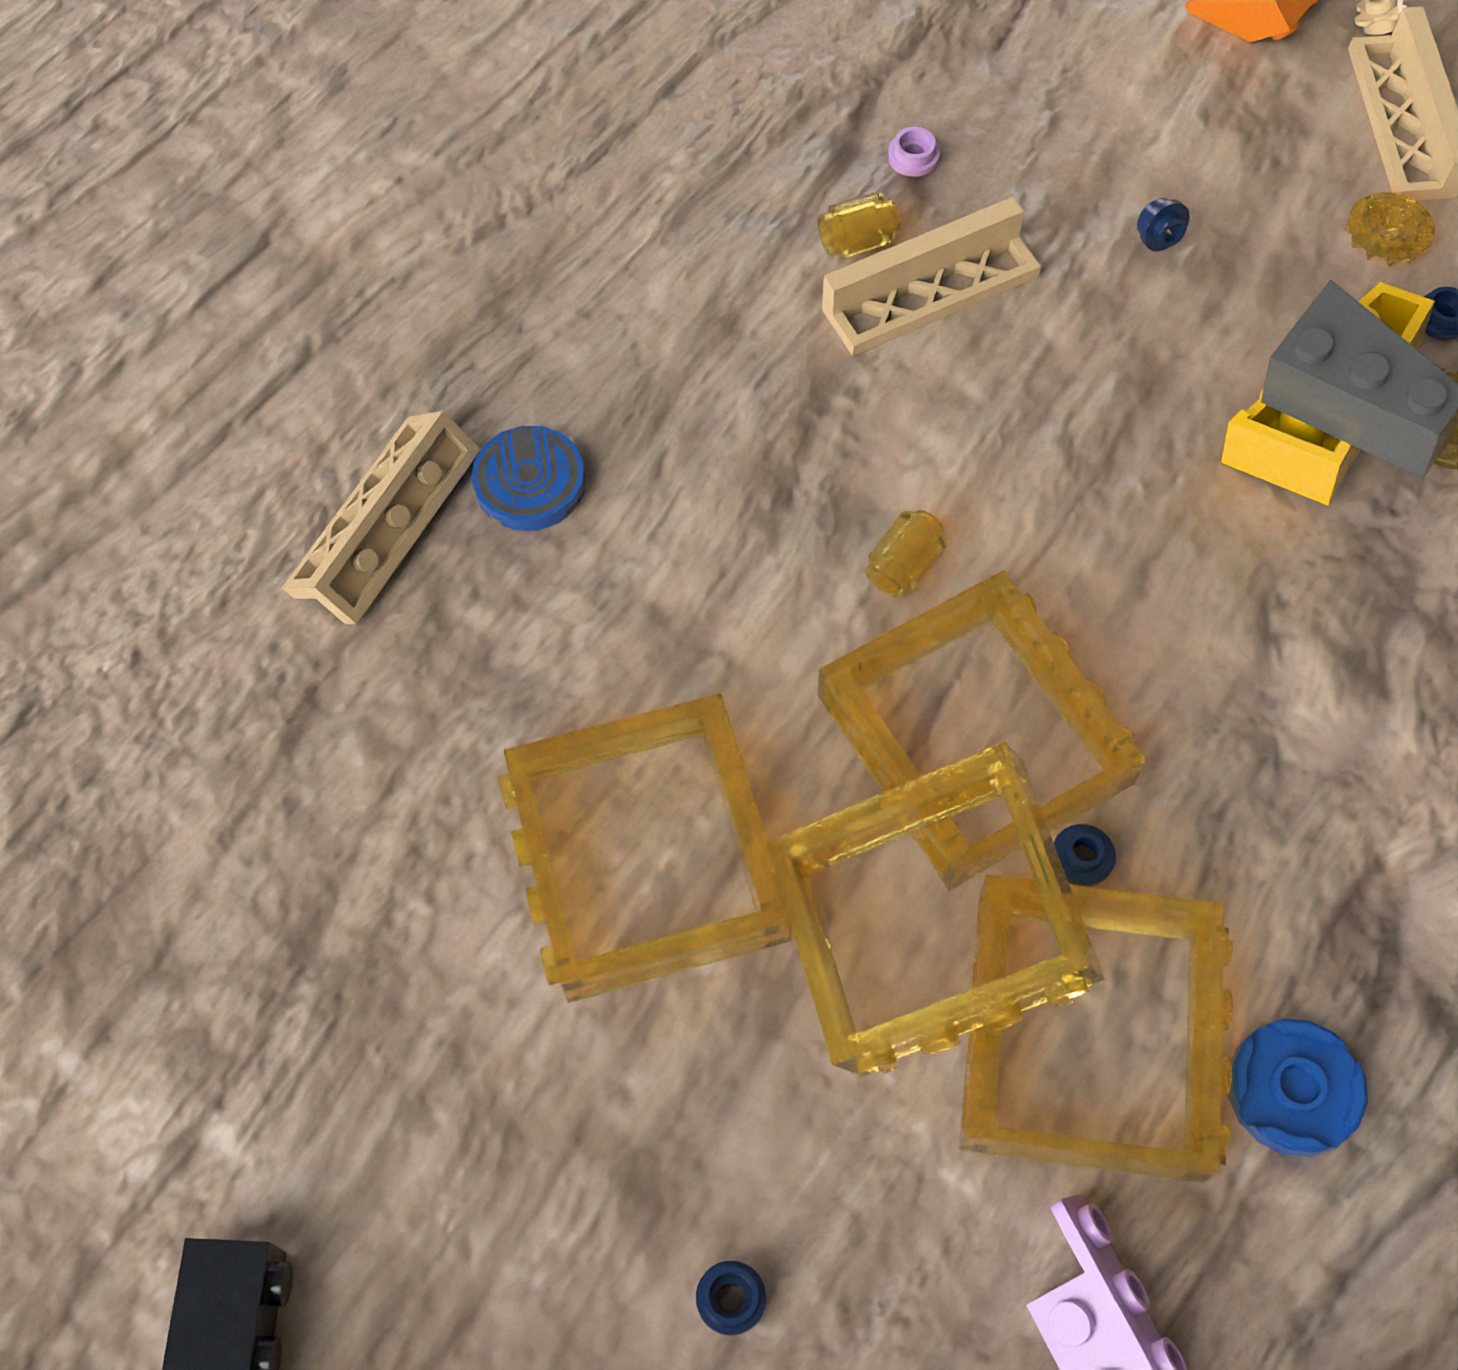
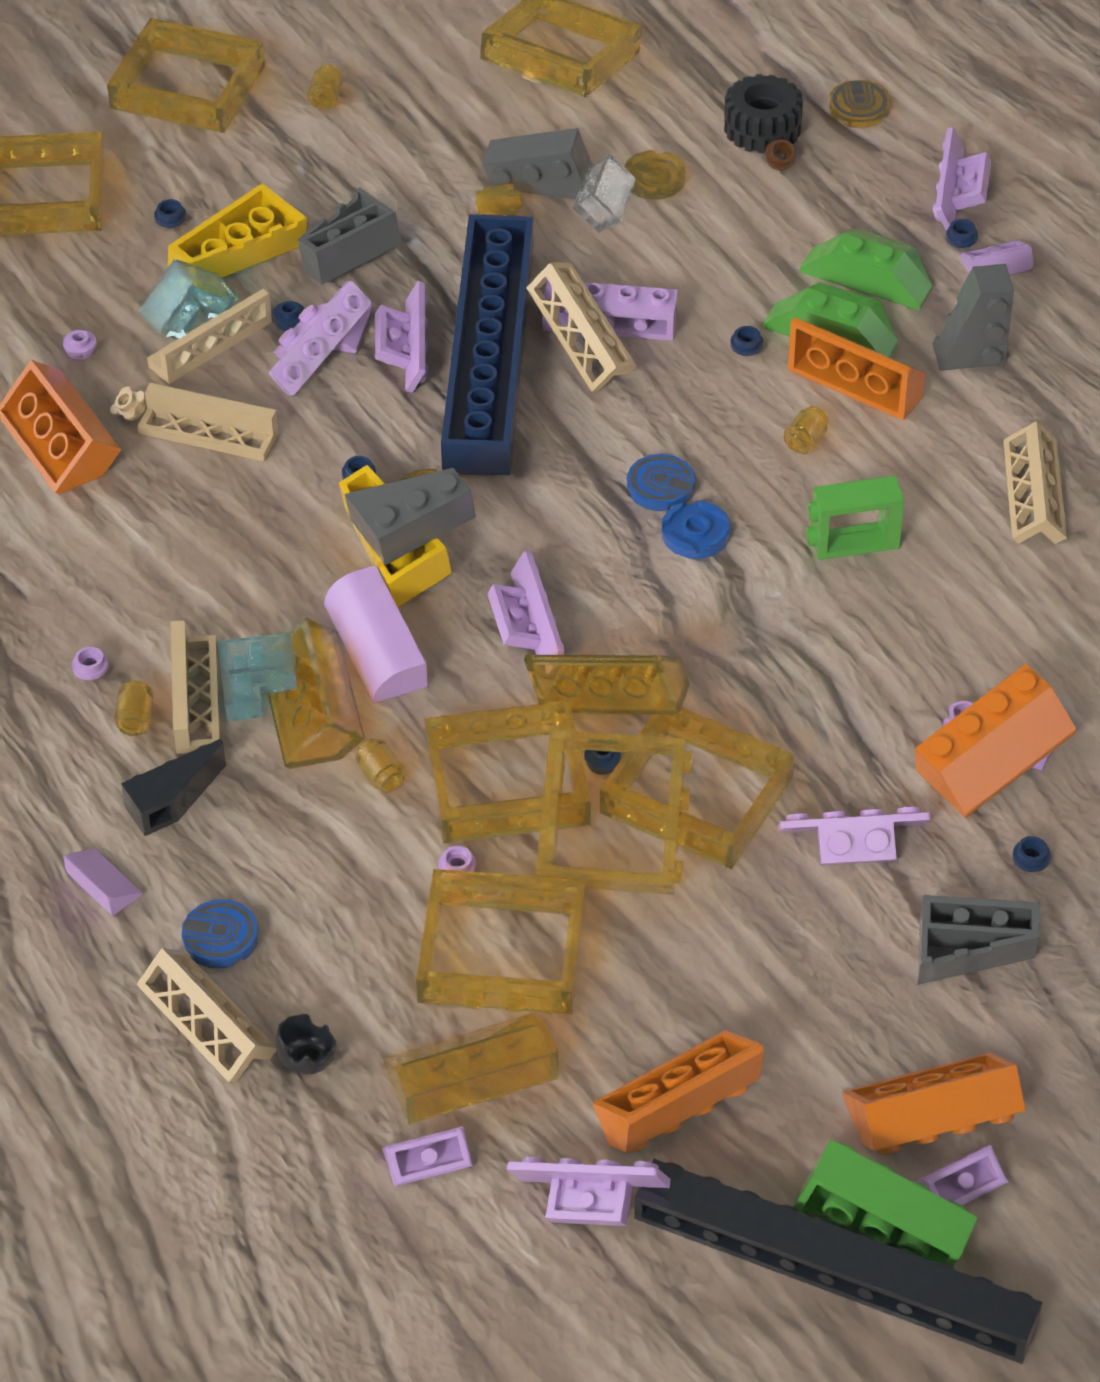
camera: 70 degrees left, 15 degrees down
(189, 1157) = (589, 1192): none -> lavender bracket
(233, 892) = (428, 1156): none -> lavender slope
(354, 651) = (304, 1045): none -> black hair
(406, 888) = (473, 1067): none -> clear yellow slope
(420, 1231) = (679, 1090): none -> orange slope
(562, 308) = (101, 880): none -> lavender slope
(731, 1274) = (766, 974): dark blue plate -> none
(741, 322) = (171, 789): none -> black slope
(774, 712) = (457, 859): none -> lavender plate
(967, 321) = (253, 668): none -> clear light blue brick
(990, 420) = (321, 715): none -> clear yellow slope
(1146, 456) = (375, 635): none -> lavender brick
(1163, 223) = (223, 566): dark blue plate -> none
(1209, 807) = (610, 683): none -> clear yellow slope
(1297, 630) = (524, 610): none -> lavender bracket
(1297, 1088) = (766, 717): blue tile -> none
(1392, 212) = (274, 463): clear yellow gear -> none

